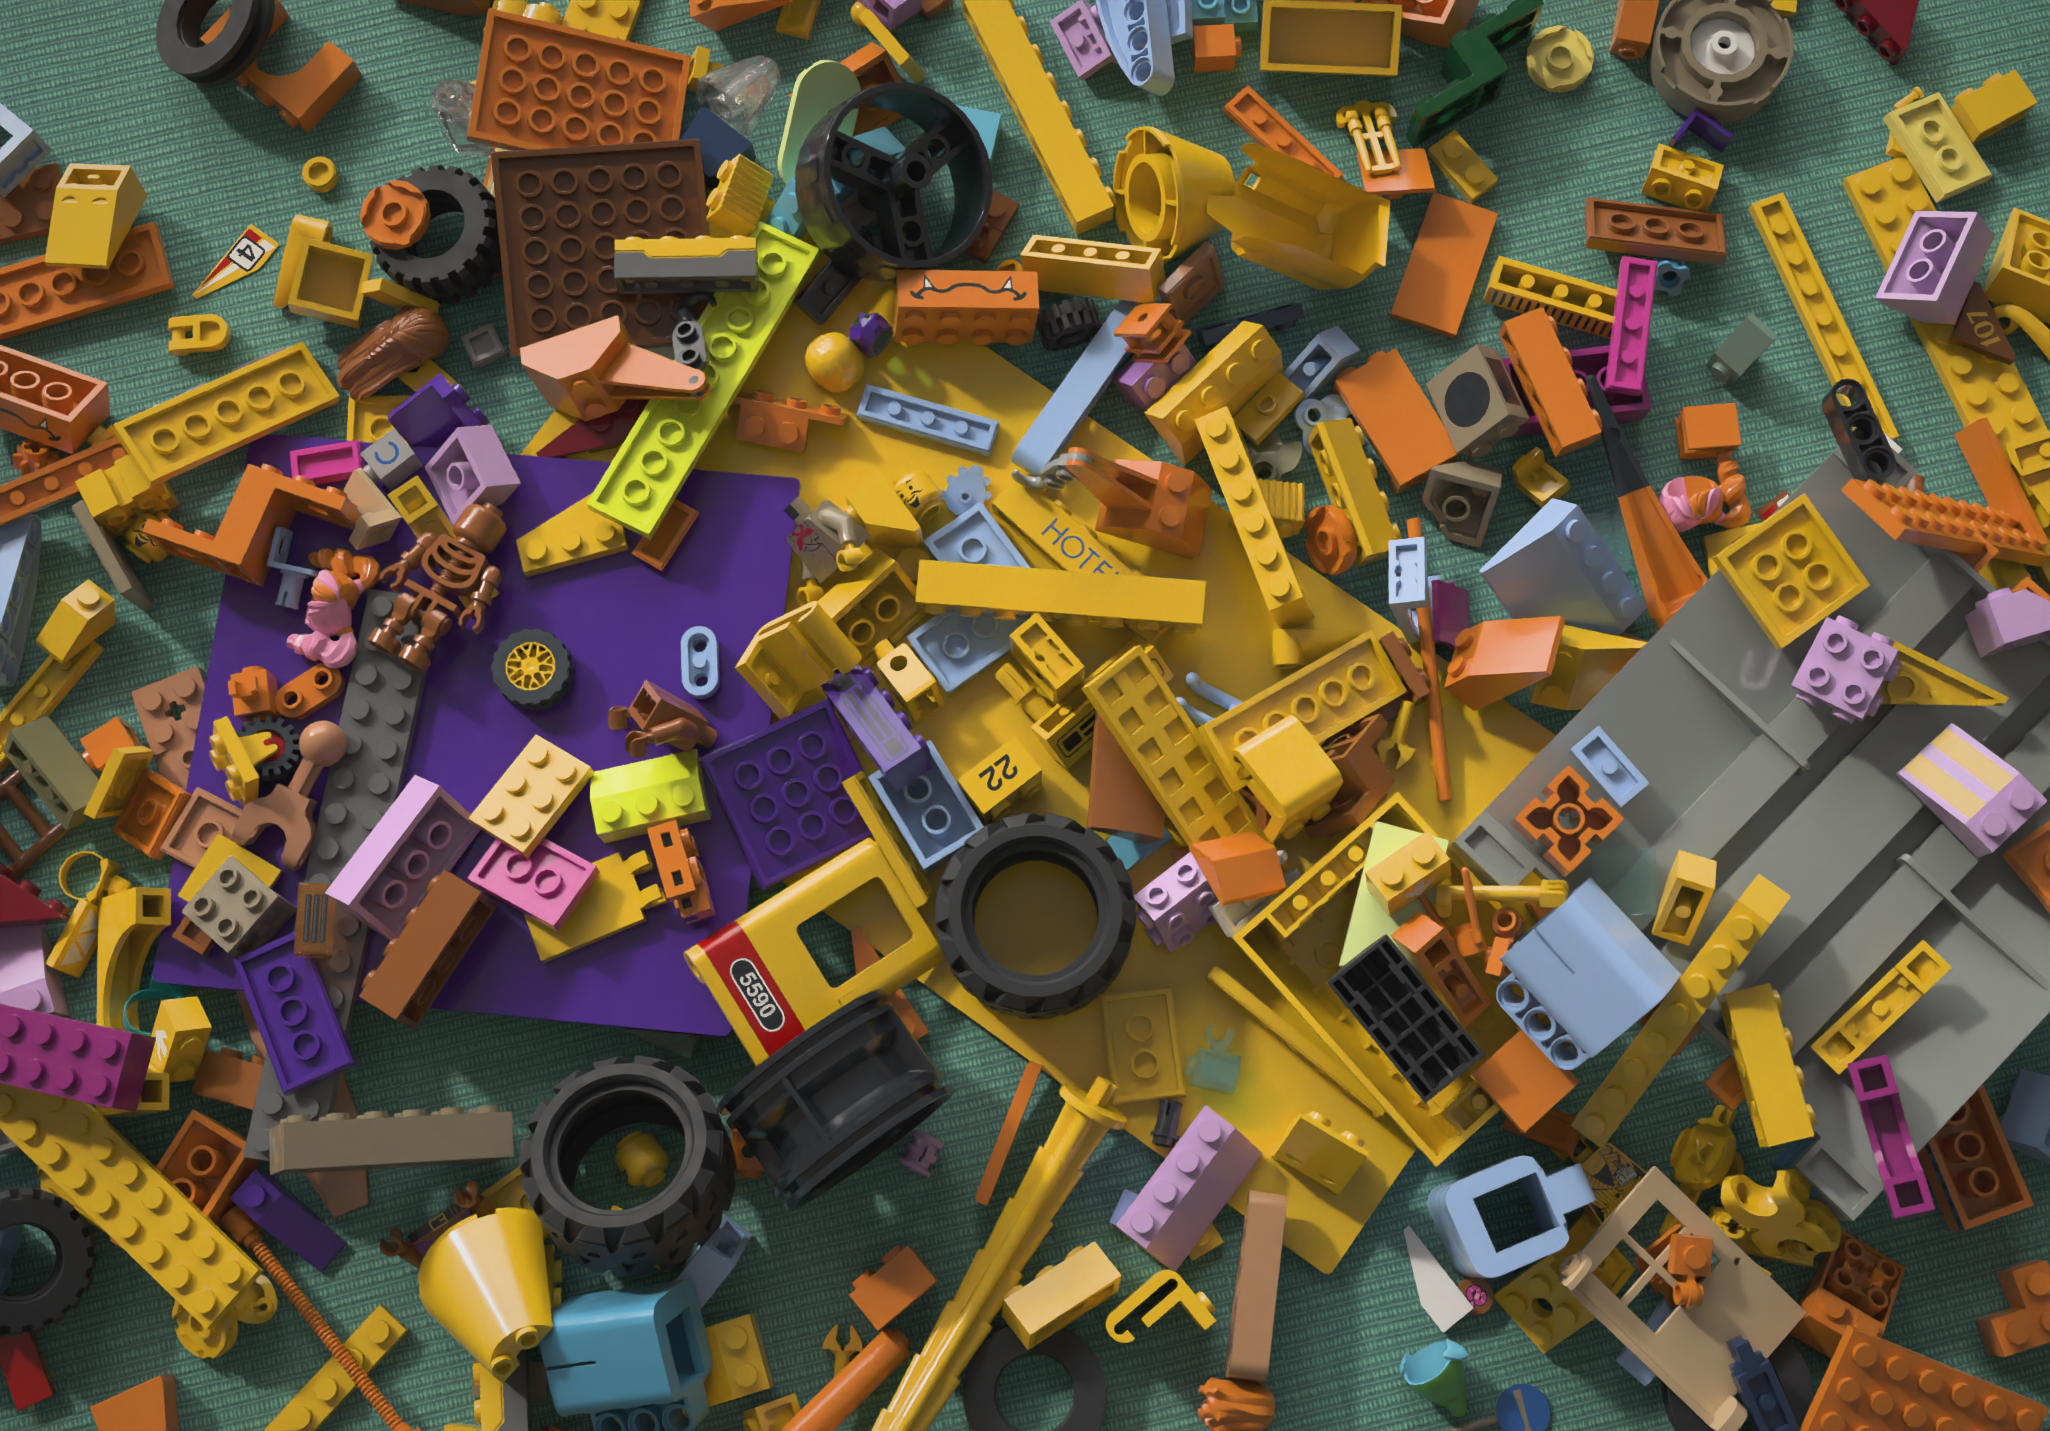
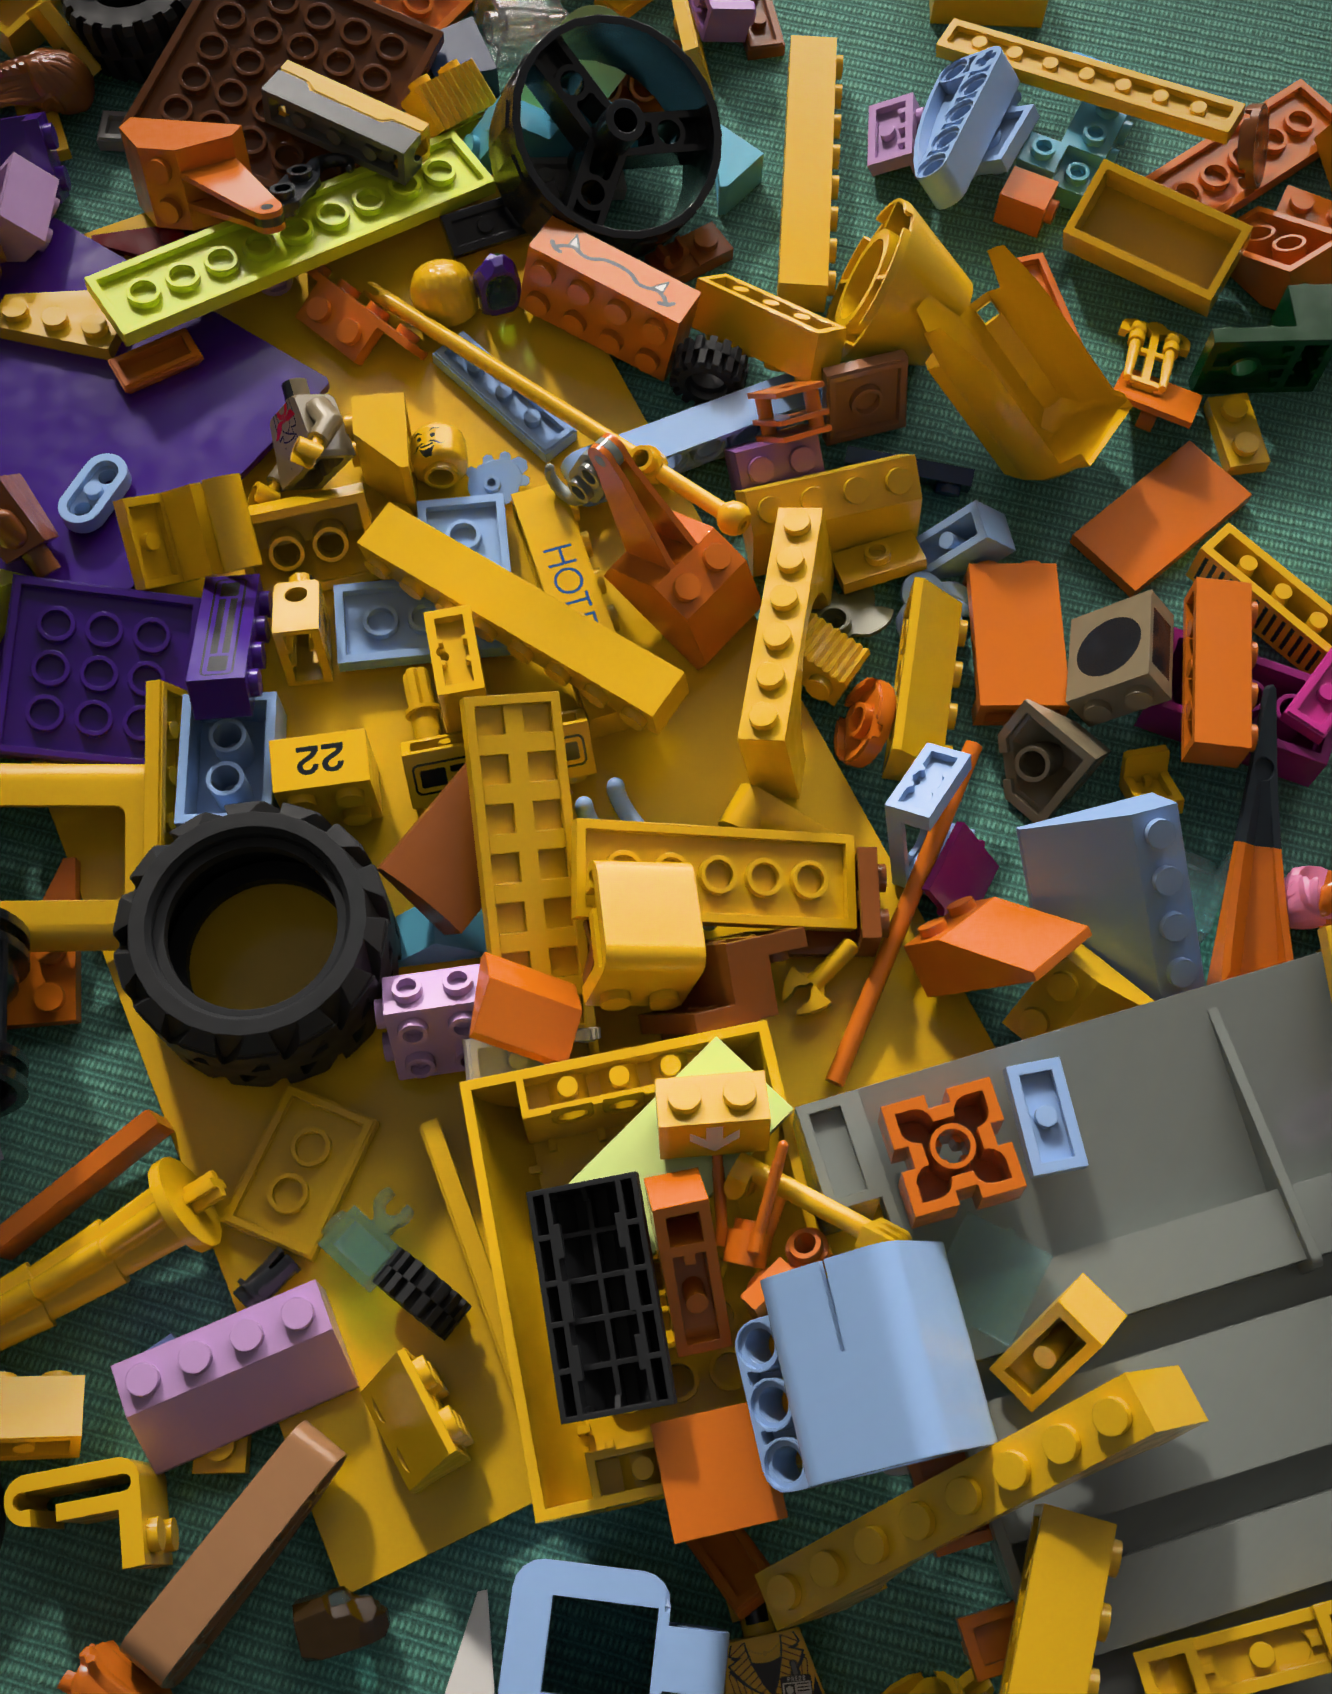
camera: 25 degrees right, 10 degrees down
(1164, 443) = (731, 516): none -> yellow bar
(1273, 1076) = (422, 1293): none -> black tyre
(1337, 1292) = (337, 1623): none -> dark brown rock

